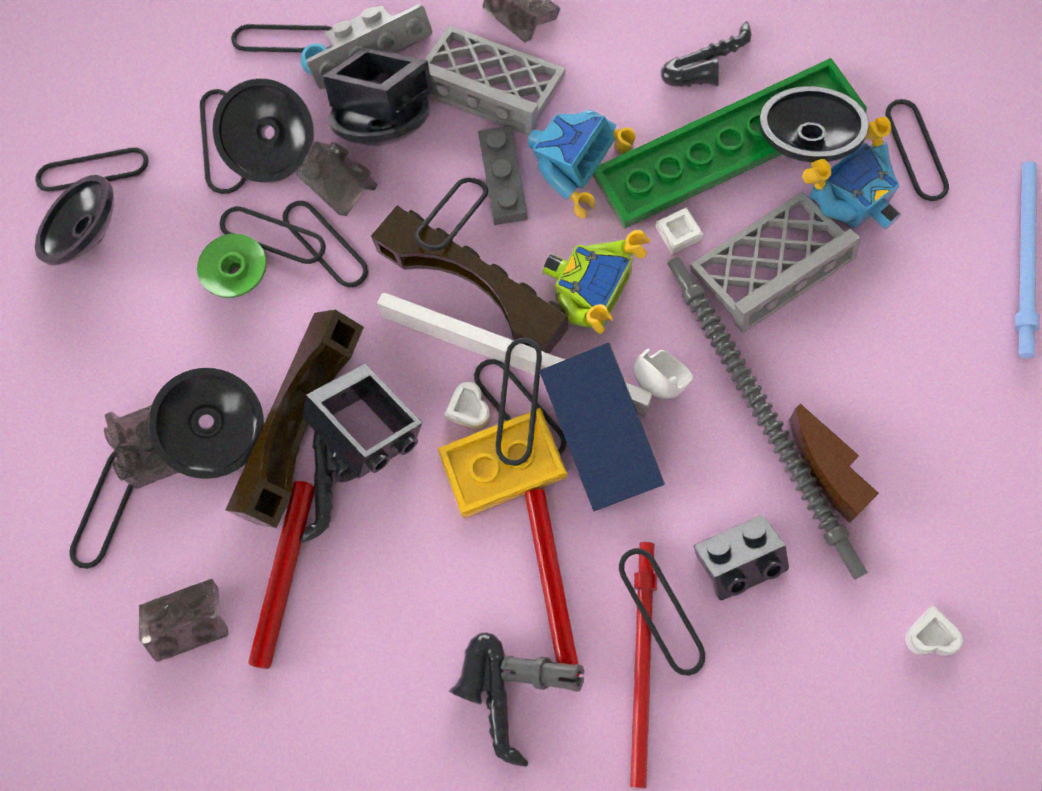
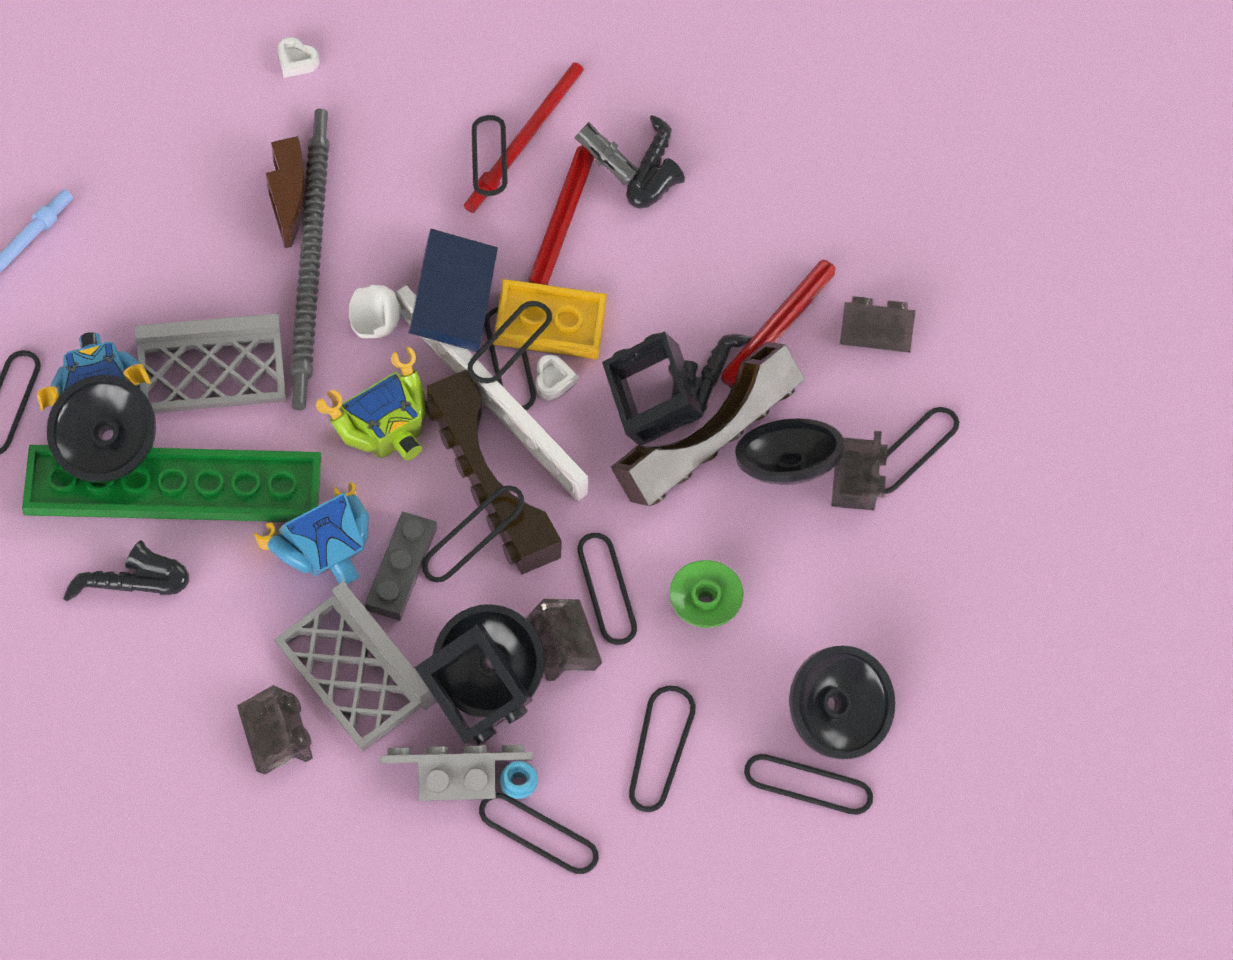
camera: 165 degrees left, 10 degrees down
(241, 128) = (612, 702): black dish -> none
(281, 223) = (665, 610): black piece -> none
(679, 230) = (273, 433): white tile -> none
(743, 557) = (401, 164): bracket -> none

